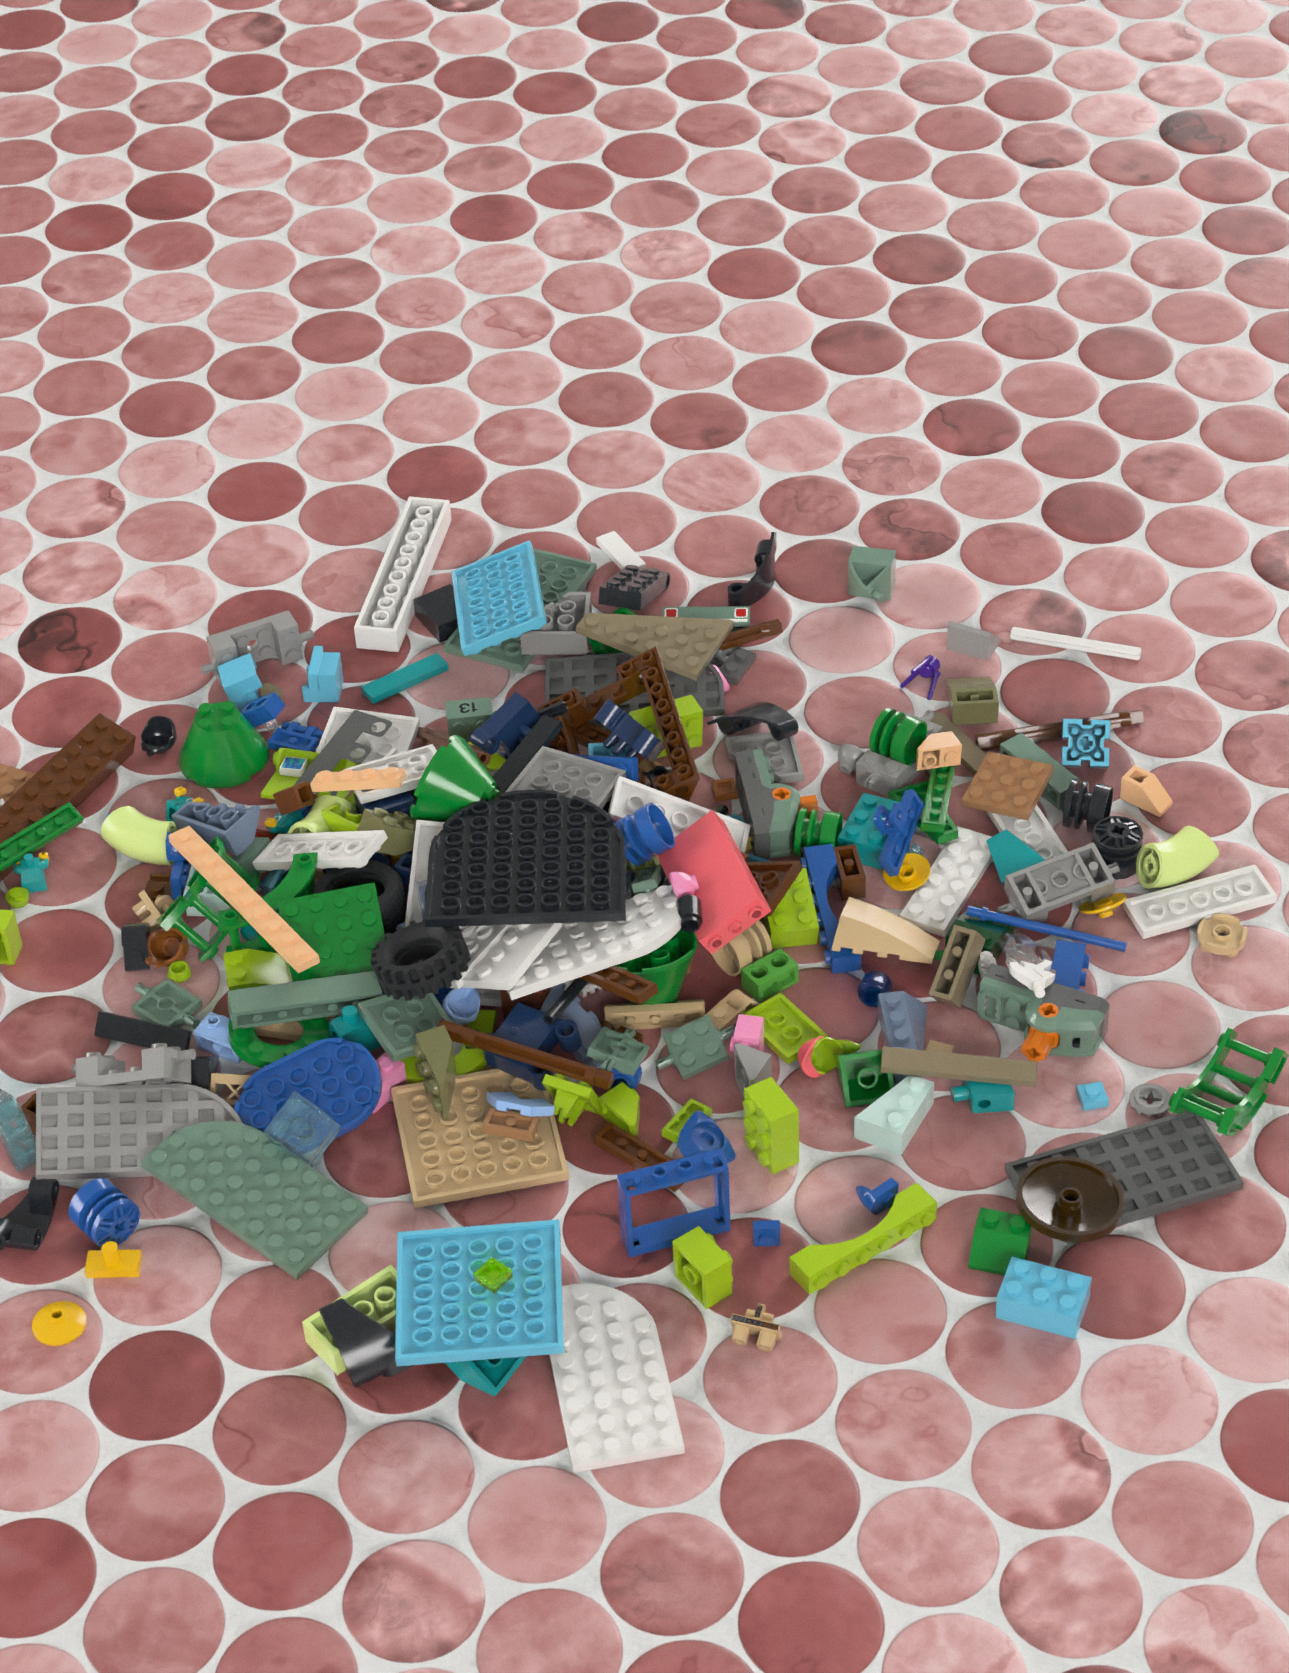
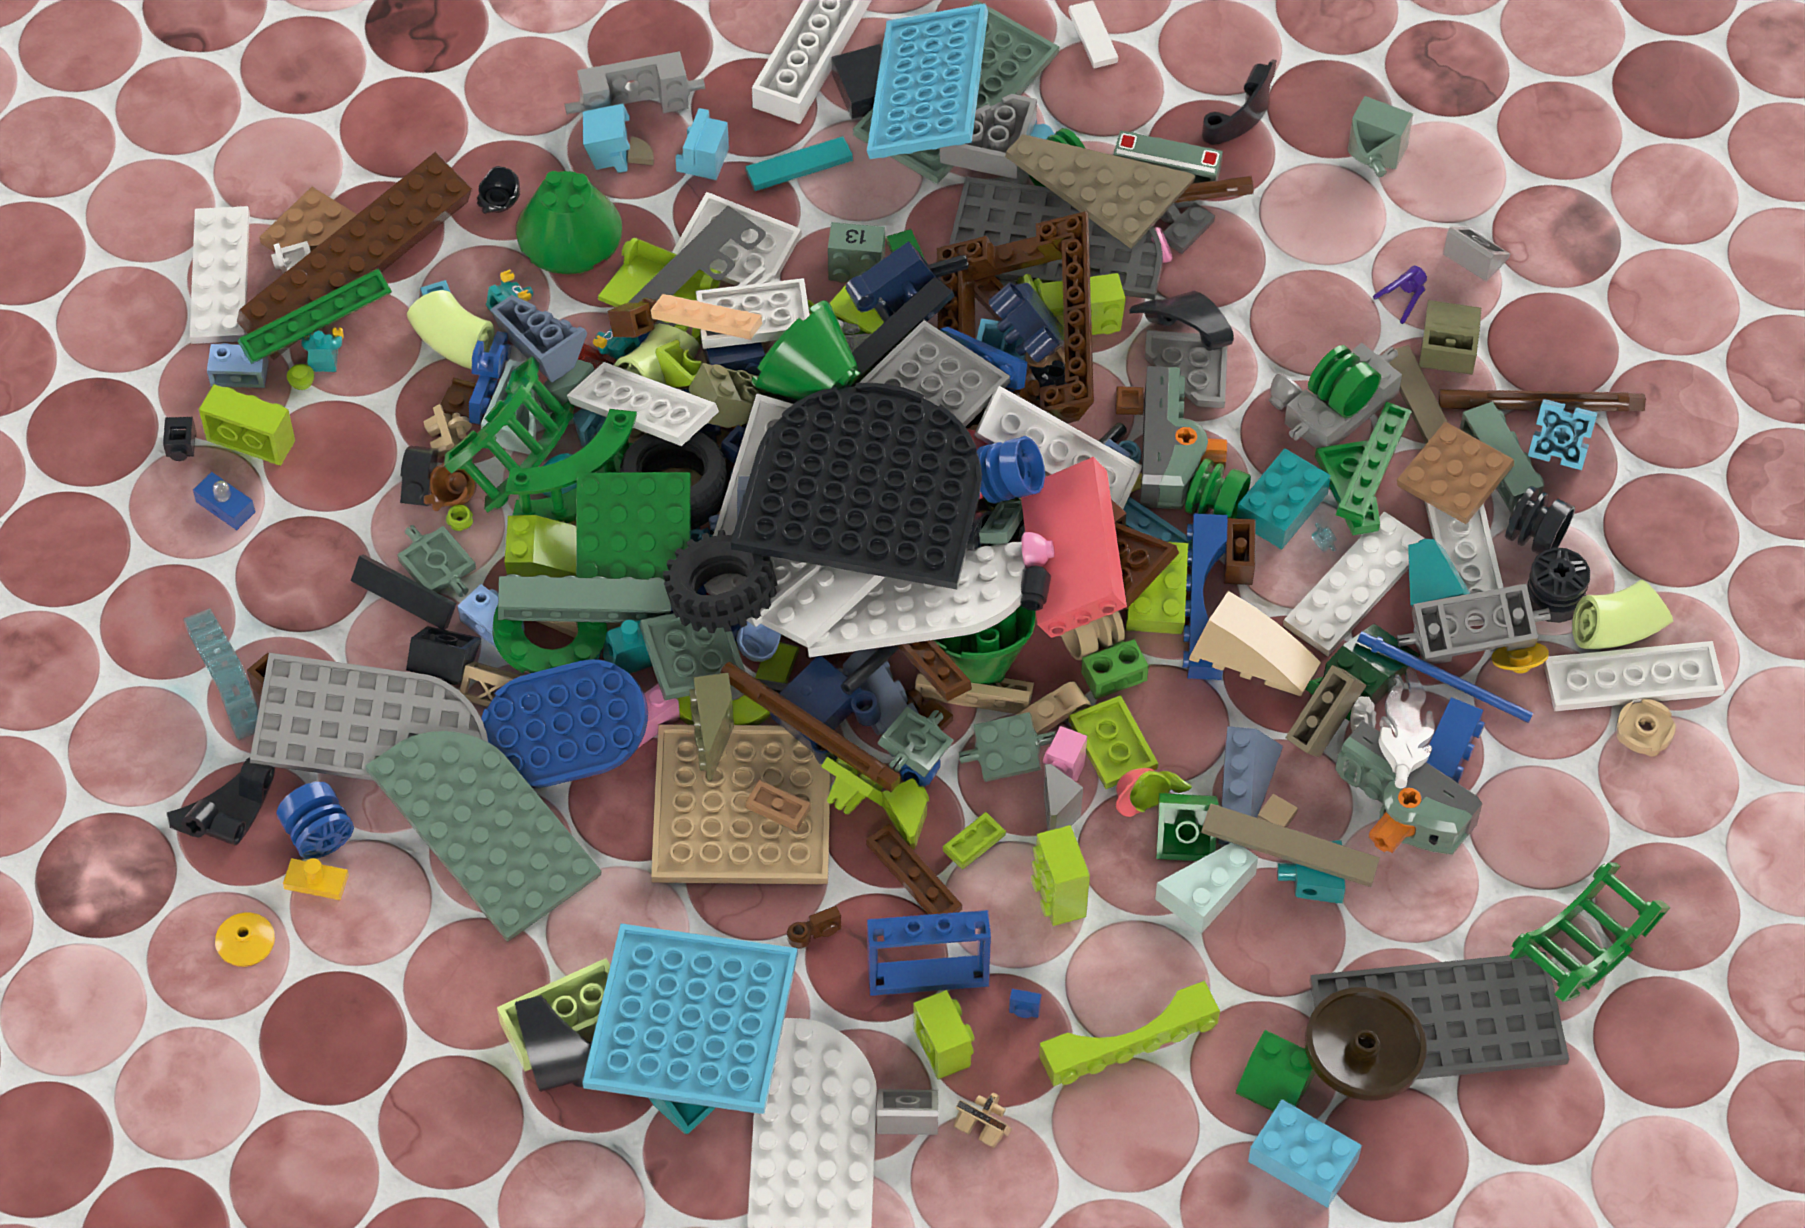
camera: 10 degrees right, 15 degrees up
(159, 1066) = (353, 644): light grey brick -> none
(244, 899) = (540, 460): light nougat plate -> none
(264, 711) = (622, 182): blue piece -> none
(293, 766) = (643, 264): tile -> none
(295, 737) = (649, 228): blue plate -> none
(302, 1129) = (547, 765): clear light blue slope -> none
(438, 738) = (825, 286): reddish brown piece -> none
(493, 1275) = (708, 1005): clear neon green plate -> none
(529, 1107) = (806, 791): light blue tile -> none
(571, 1209) = (820, 924): none -> reddish brown plate
(633, 587) = (1091, 98): black hinge -> none
(688, 1338) = (907, 1111): none -> light grey slope
(703, 1135) = (984, 873): blue hat -> none
(871, 985) = (1227, 711): clear blue head -> none
(880, 1197) = (1161, 987): blue plate -> none
(900, 828) = (1311, 510): blue plate -> none
(912, 874) = (1303, 555): yellow dish -> none
(939, 751) = (1388, 408): light nougat slope -> none
(1076, 643) = (1597, 281): white axle -> none
(1092, 1096) = (1435, 906): medium azure plate -> none
(1140, 1095) = (1490, 917): light grey gear -> none
(1145, 791) = (1614, 513): light nougat slope -> none

